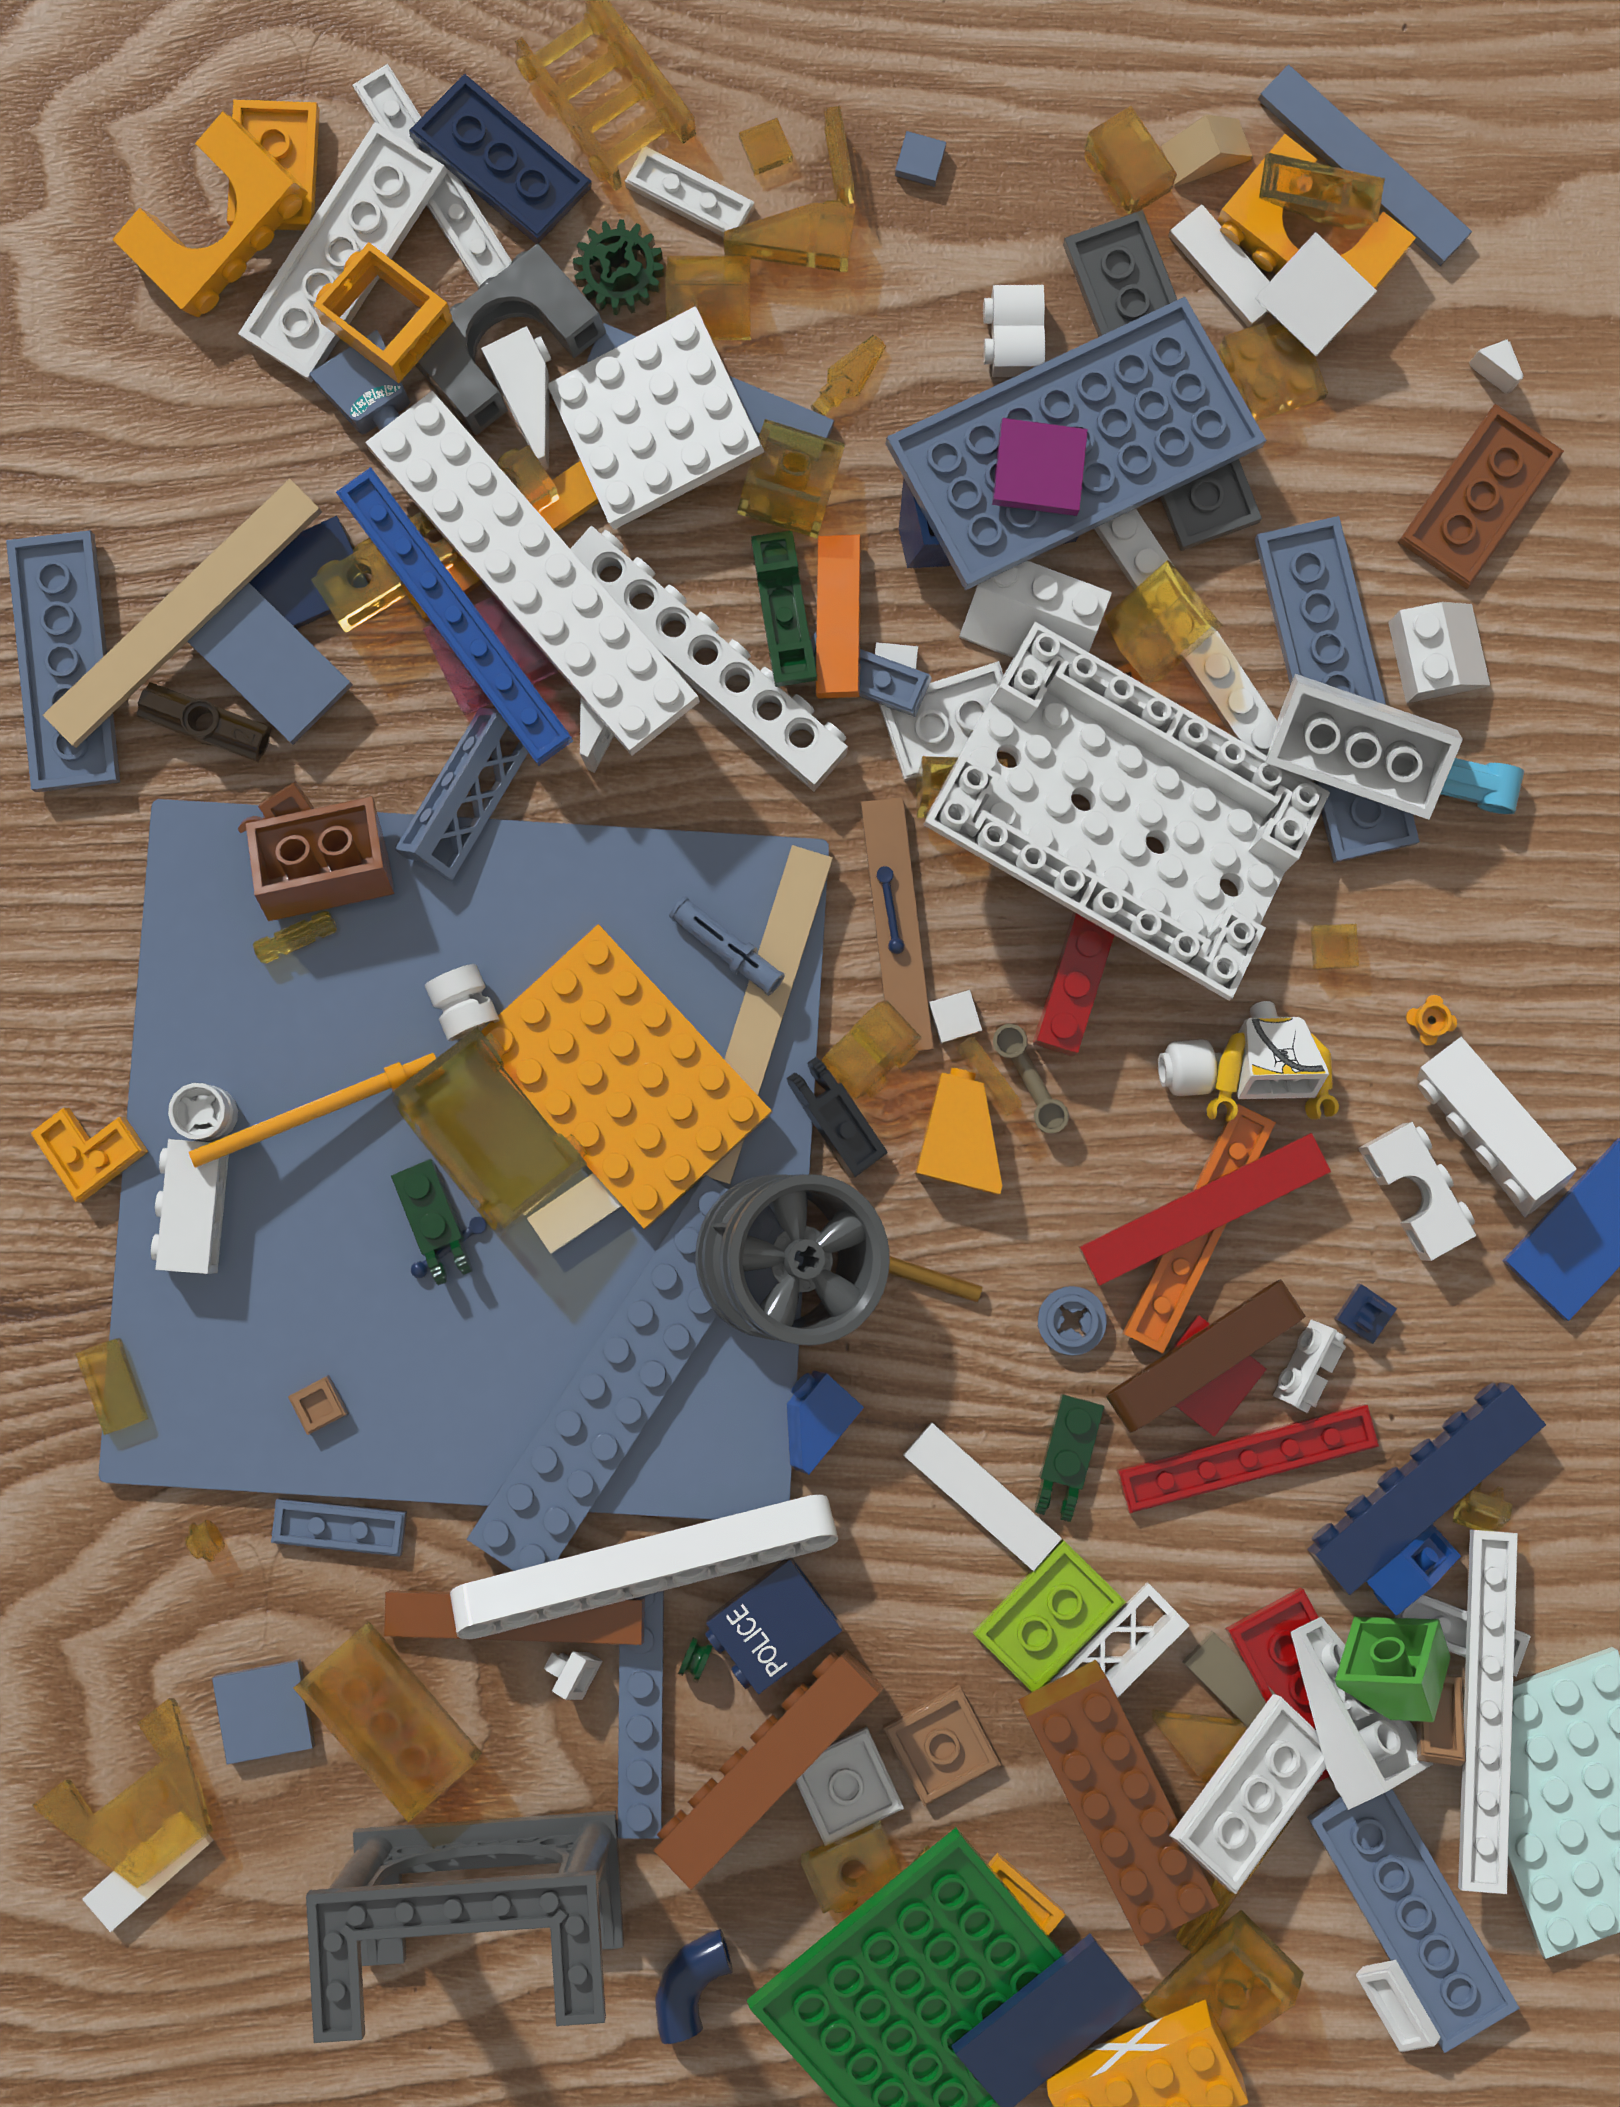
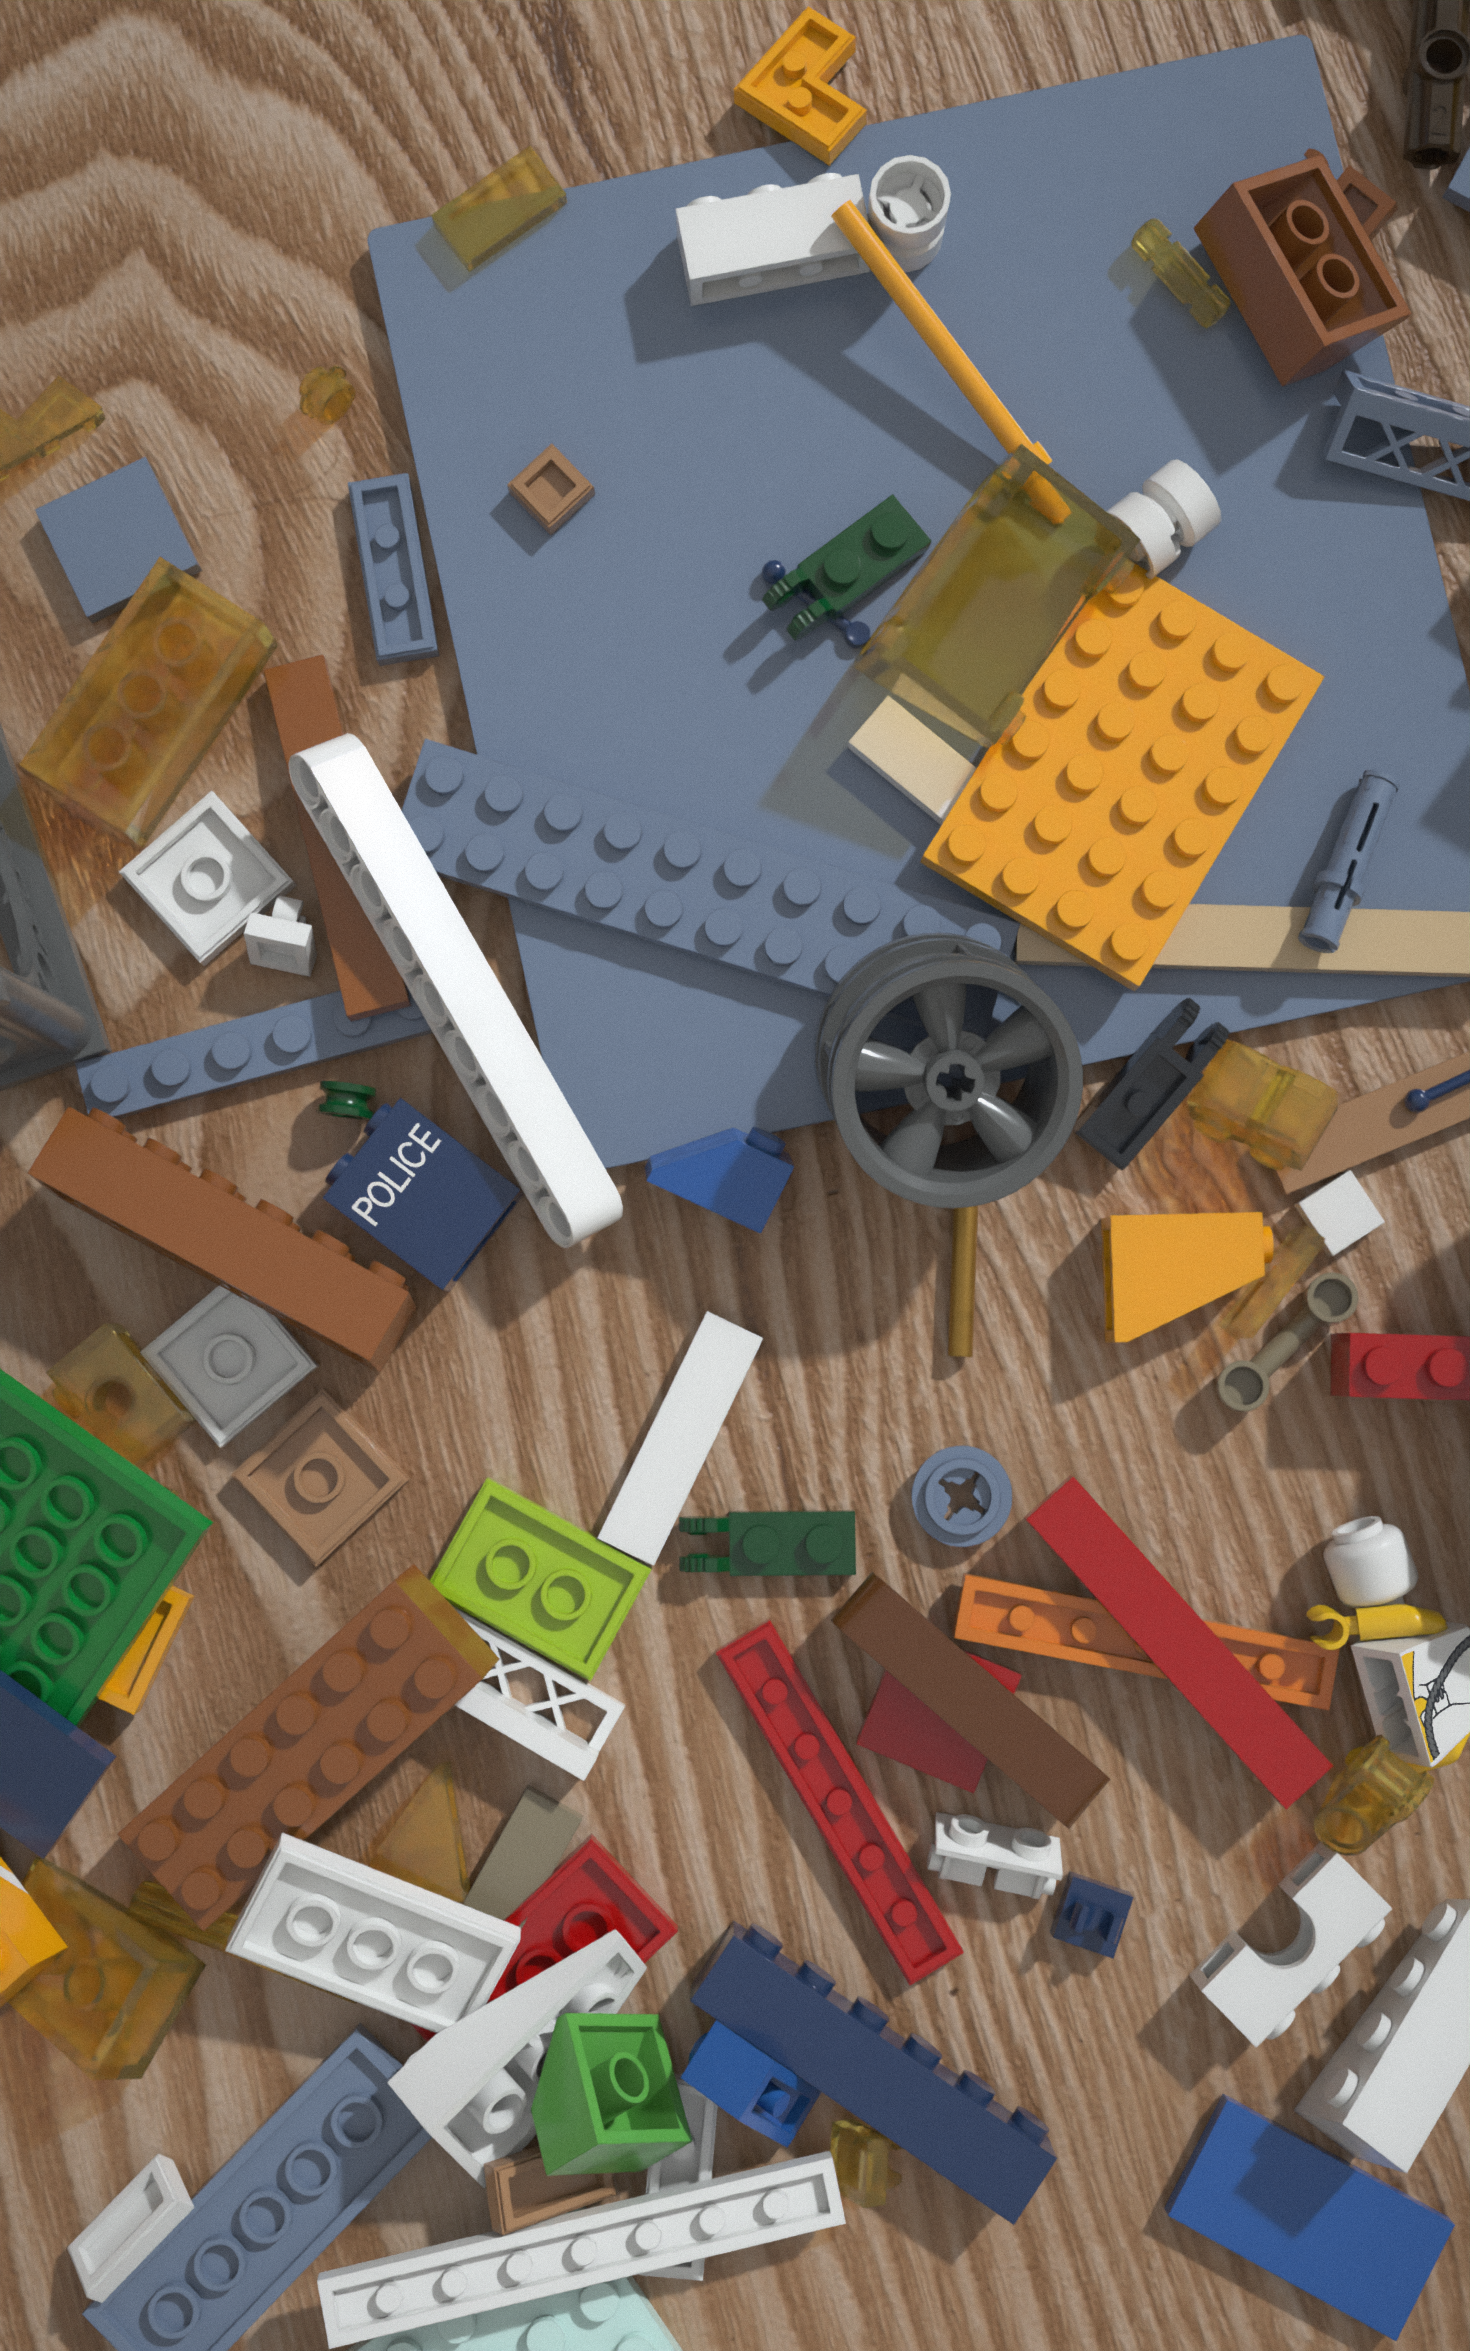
camera: 75 degrees right, 0 degrees up
(515, 1713) = (207, 878): none -> white tile
(1338, 1117) = (1369, 1799): none -> clear yellow piece

